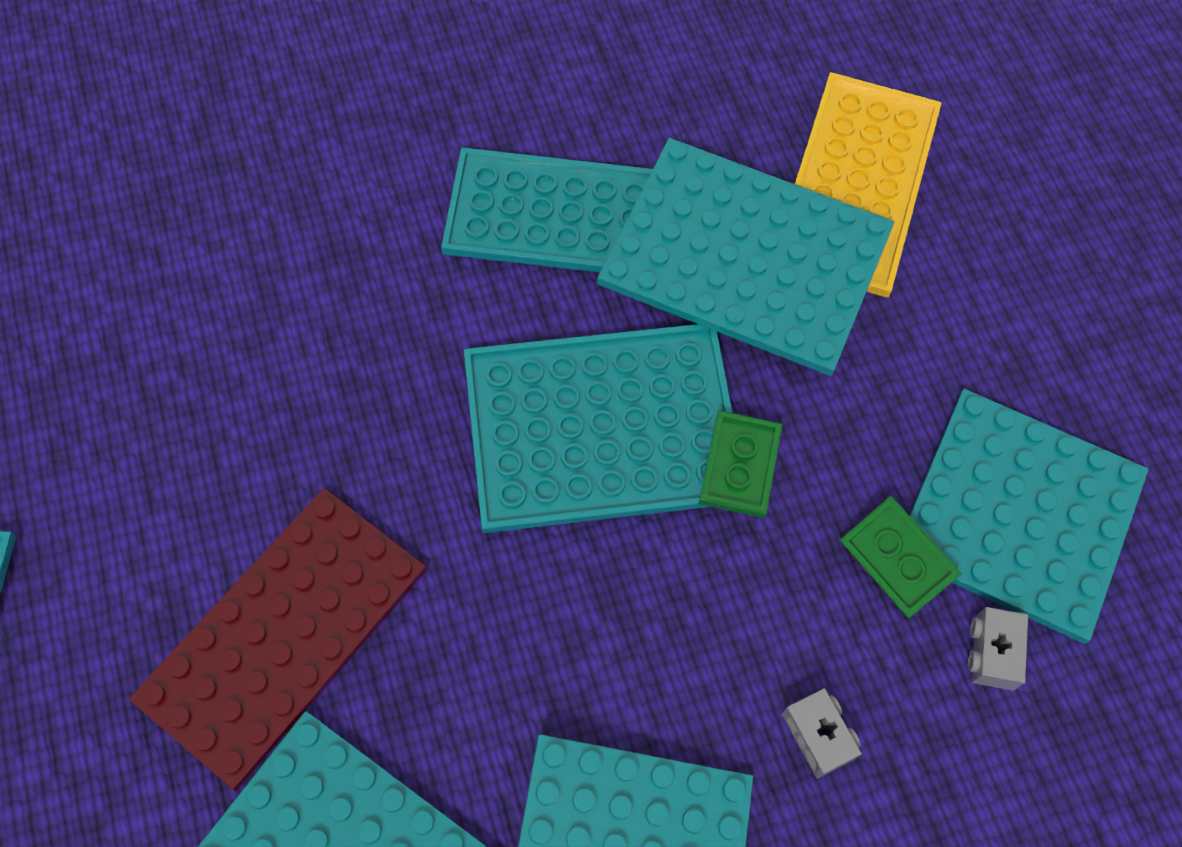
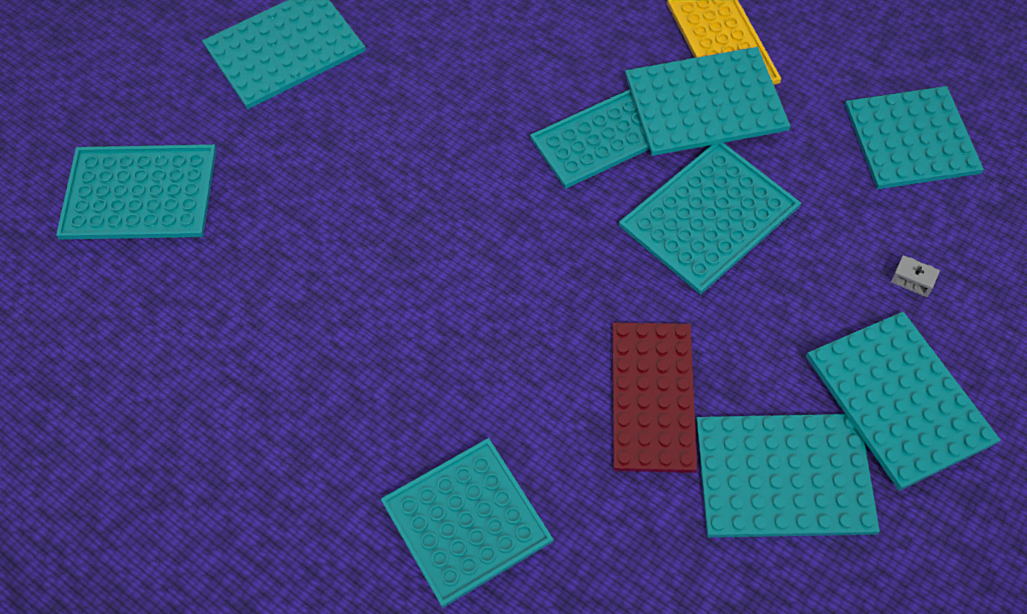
camera: 30 degrees left, 5 degrees down
(741, 464) = (786, 190): green tile -> none
(900, 557) = (883, 185): green tile -> none
(1009, 634) = (953, 195): light grey brick -> none

